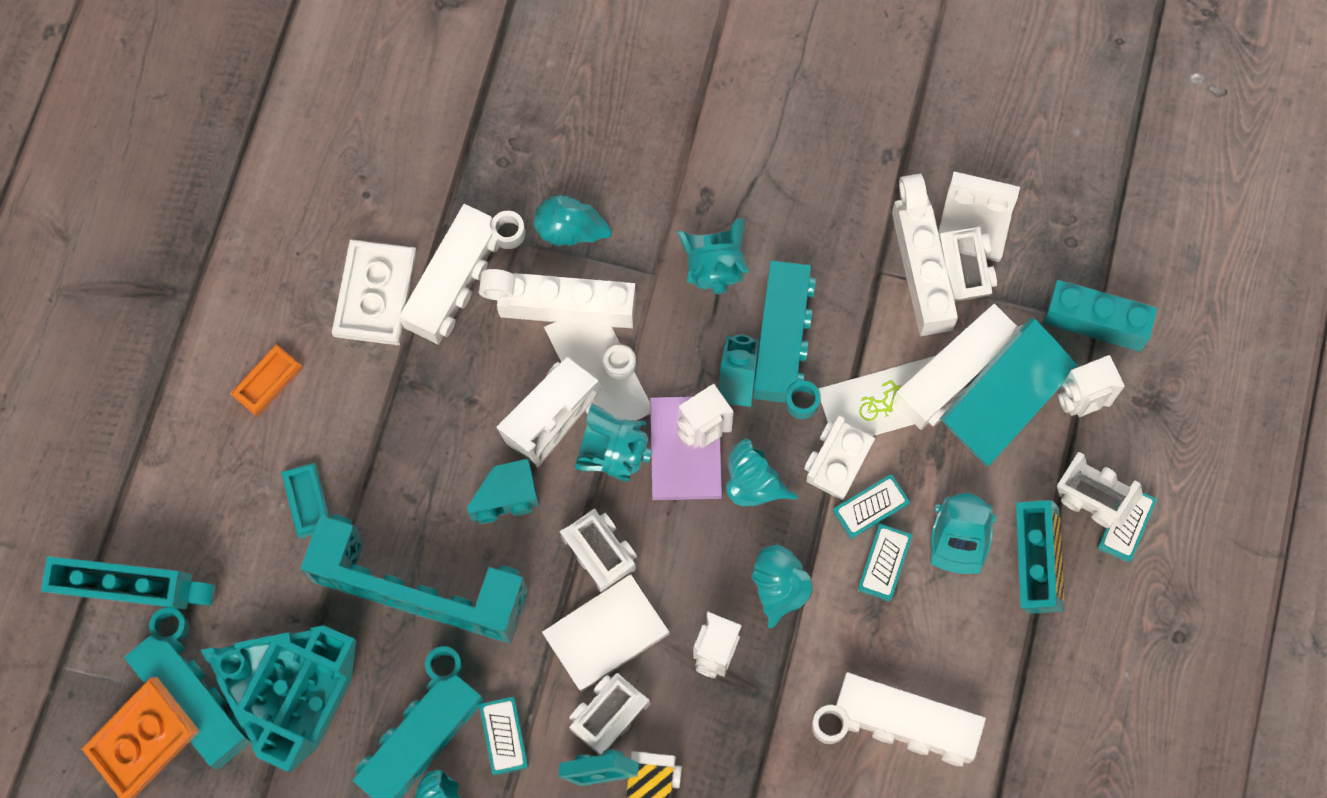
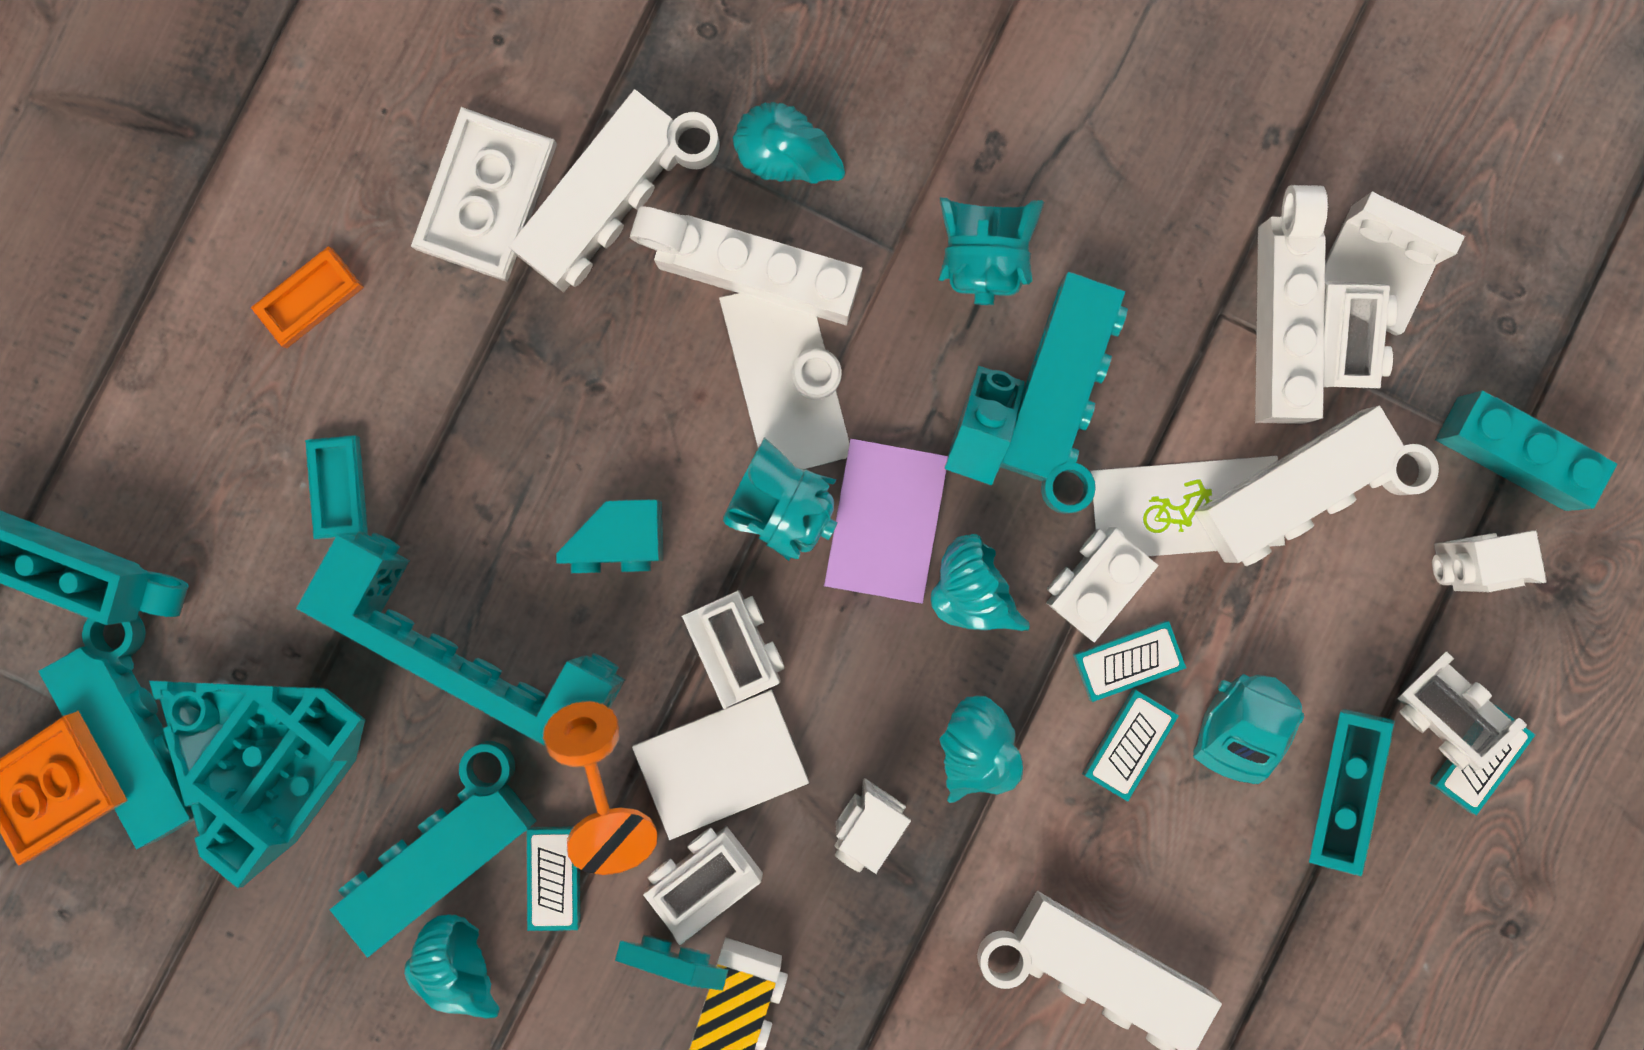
camera: 10 degrees right, 15 degrees up
(542, 692) = (612, 837): none -> orange piece
(549, 411) = (700, 433): white wedge -> none
(704, 418) = (921, 497): white window -> none
(1009, 392) = (1368, 540): teal tile -> none

